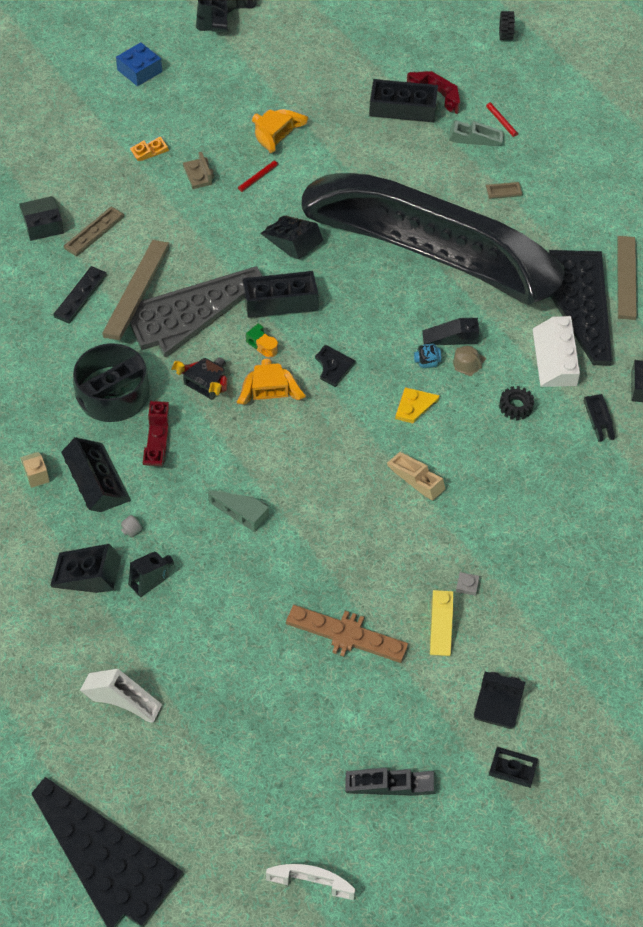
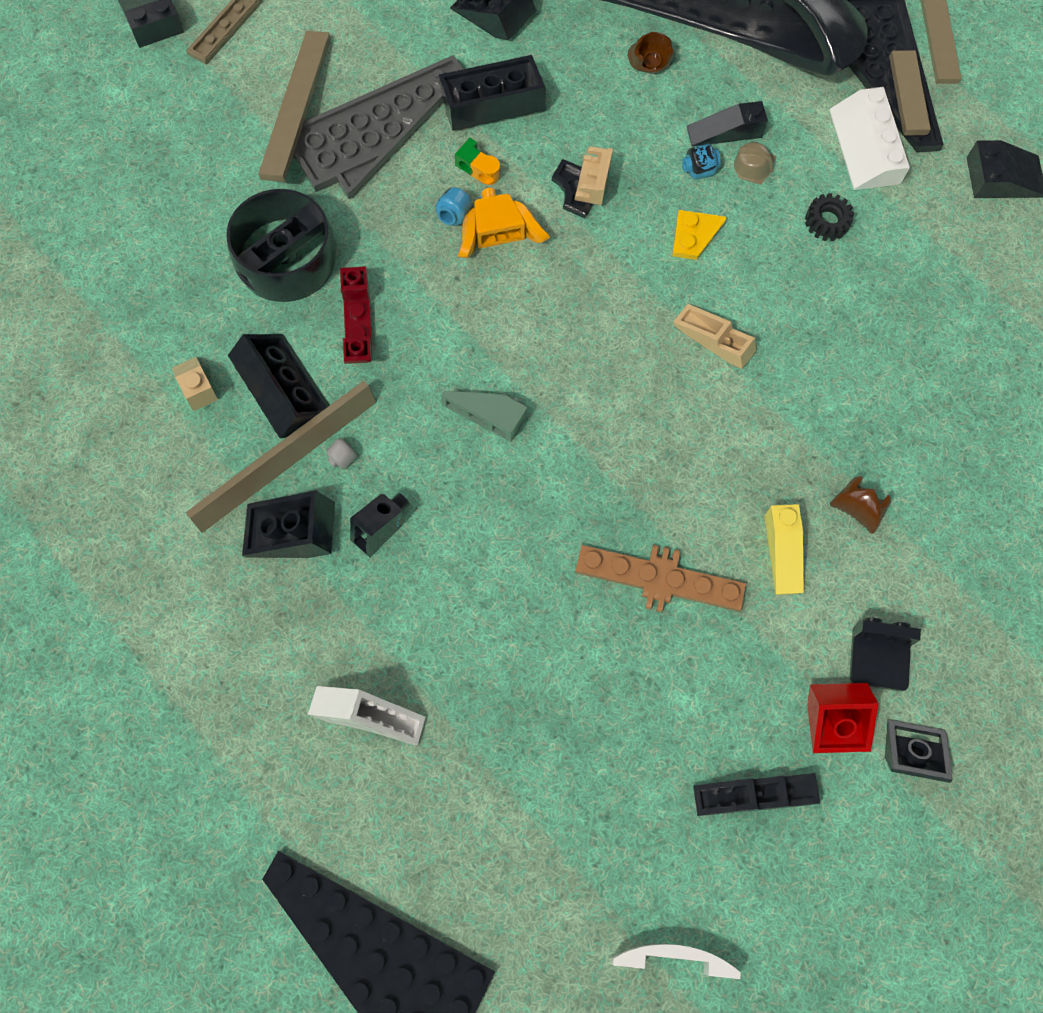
camera: 10 degrees left, 15 degrees up
(80, 294) = (219, 119): black plate -> none
(88, 523) = (281, 457): none -> dark tan tile
(204, 376) = (408, 222): torso -> none
(239, 368) = (453, 206): none -> dark azure head
(345, 358) = (594, 175): none -> tan hinge
(403, 277) = (651, 53): none -> reddish brown hair
(460, 739) = (841, 717): none -> red slope
(467, 583) = (808, 485): light grey plate -> none
(501, 598) = (862, 504): none -> reddish brown hair
(592, 322) = (909, 93): none -> dark tan tile
(599, 416) = (939, 225): black hinge -> none

